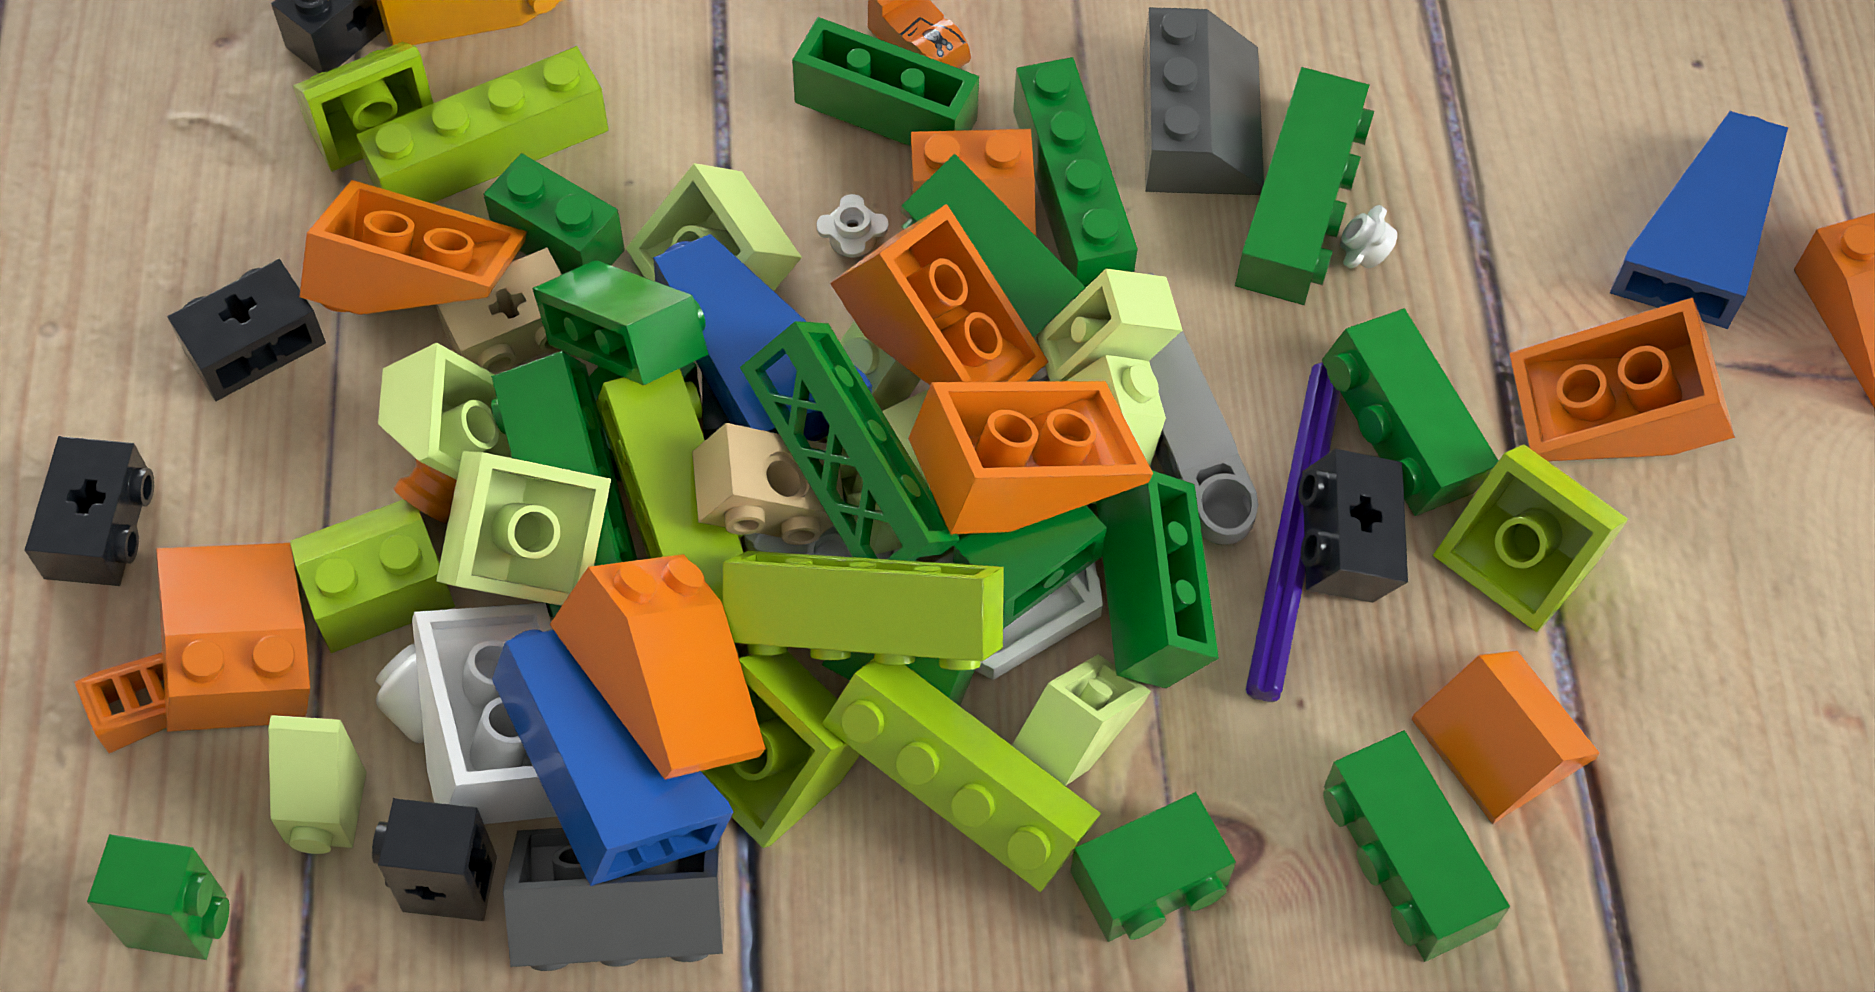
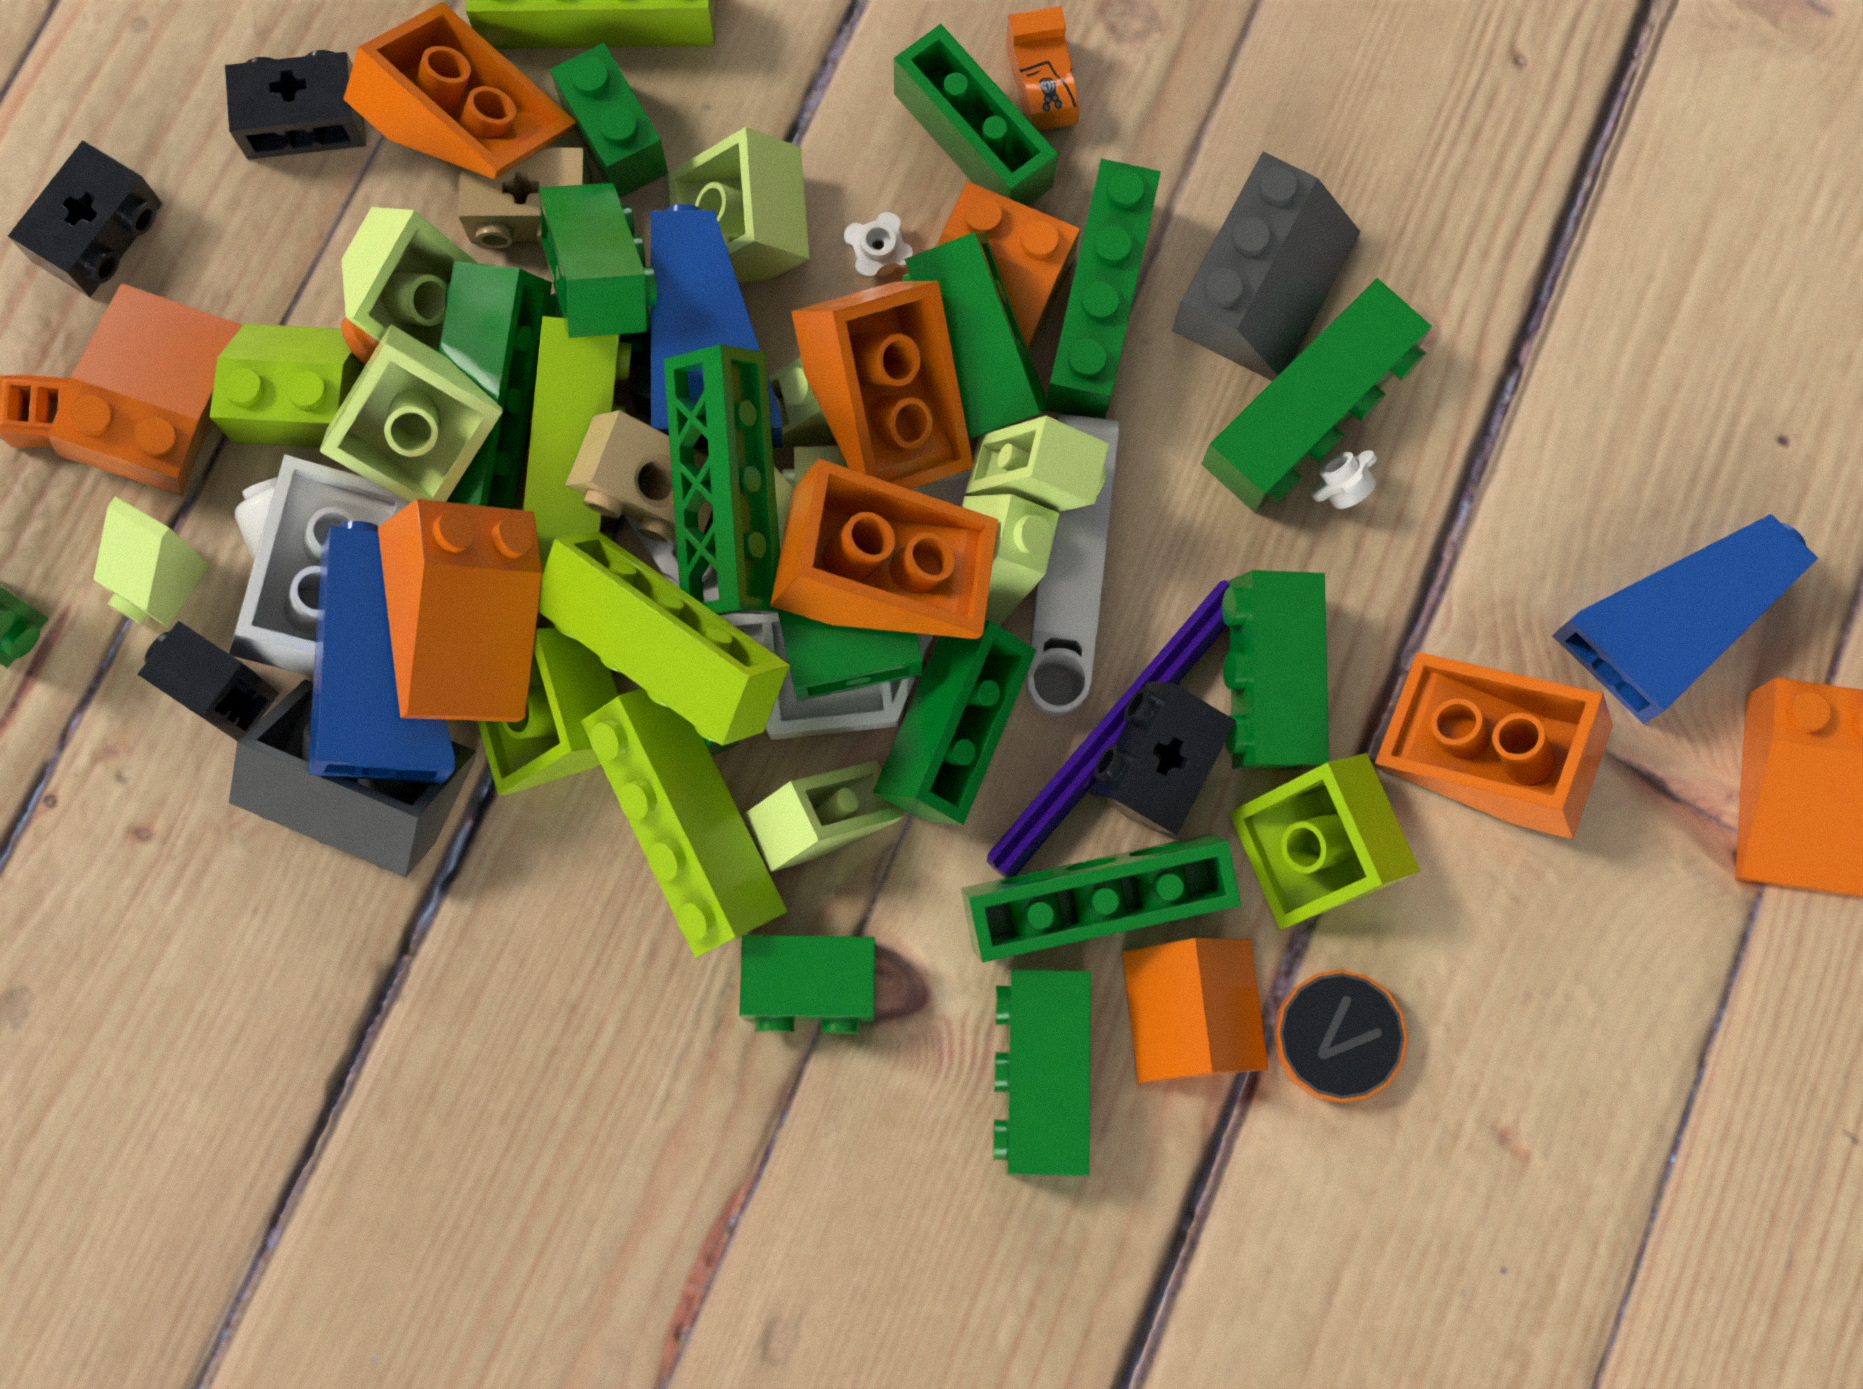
camera: 25 degrees right, 15 degrees up
(1370, 667) = (1100, 897): none -> green brick
(1643, 695) = (1340, 1036): none -> black tile

